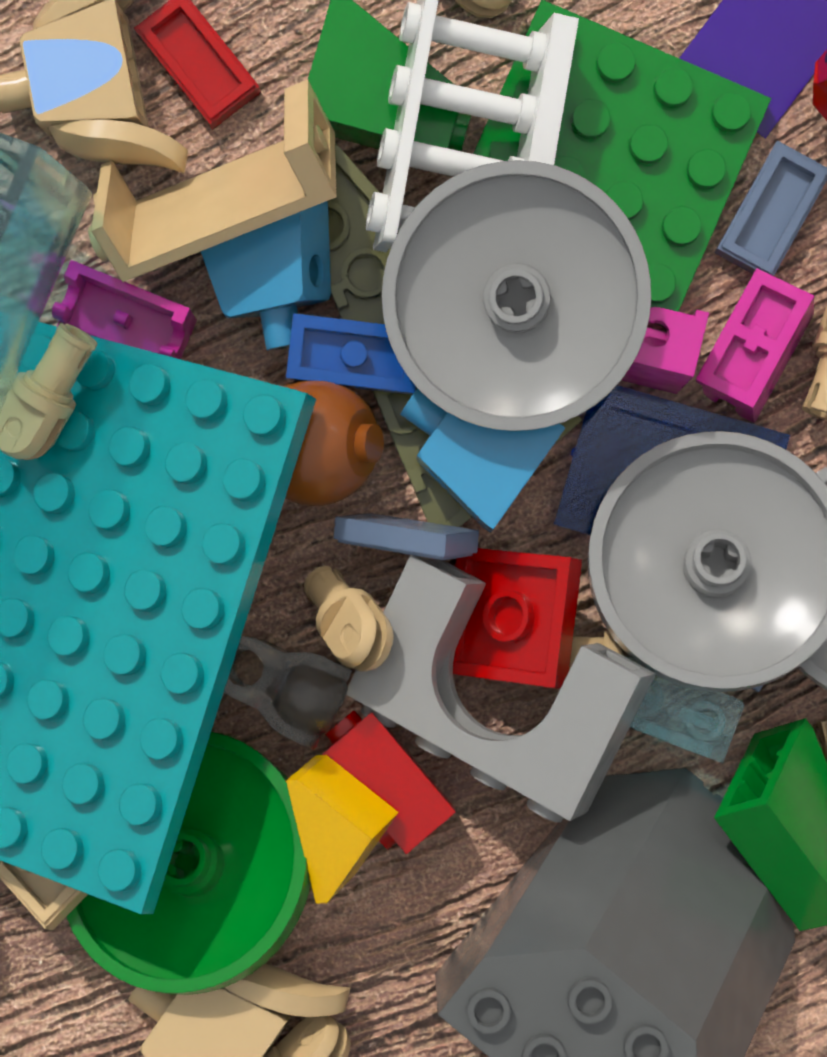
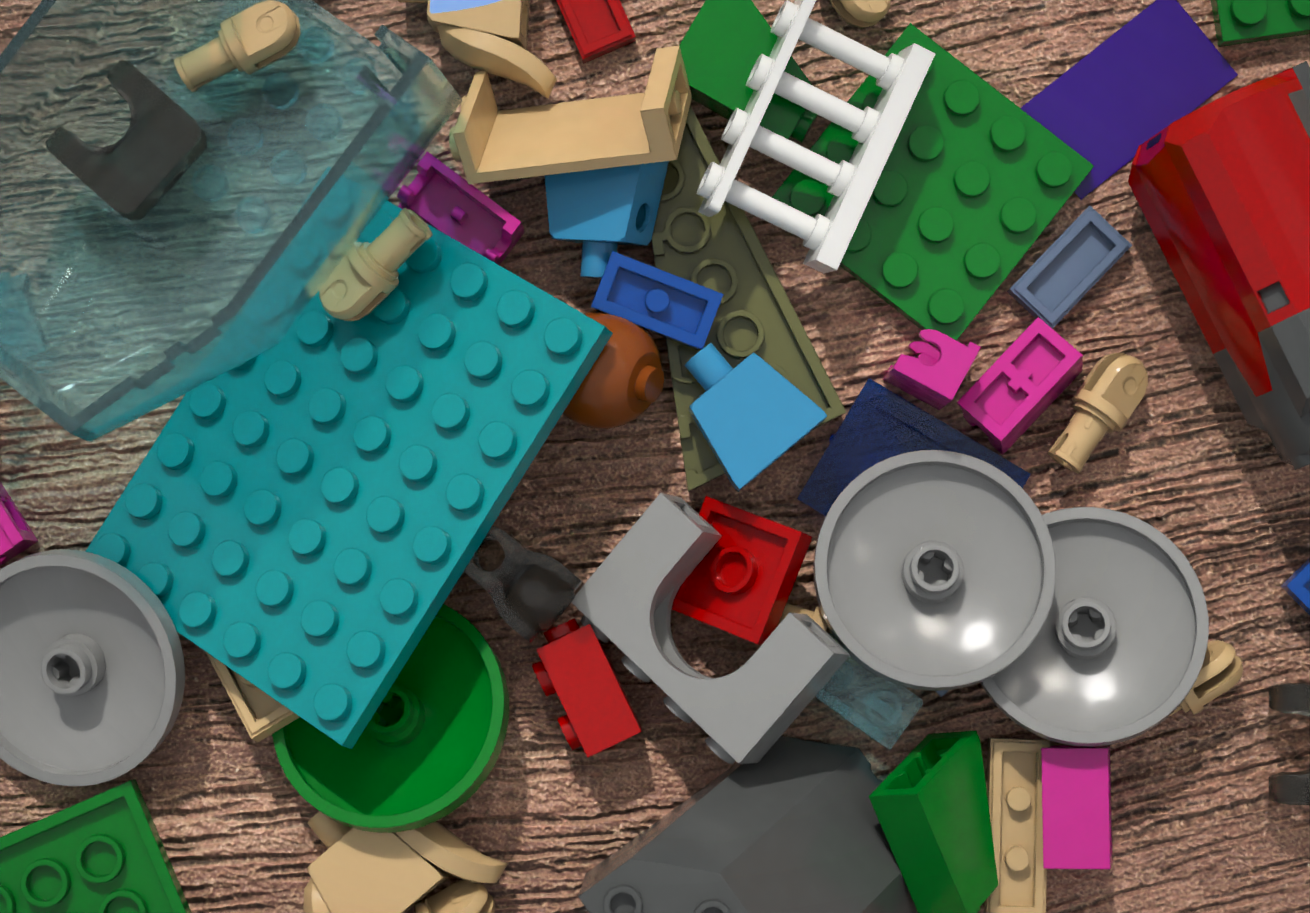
camera: 20 degrees right, 0 degrees up
(336, 823) = (532, 713): yellow slope -> none
(349, 620) = (590, 537): tan arm -> none
(406, 536) = (661, 475): sand blue tile -> none
(516, 295) = (813, 288): light grey dish -> none

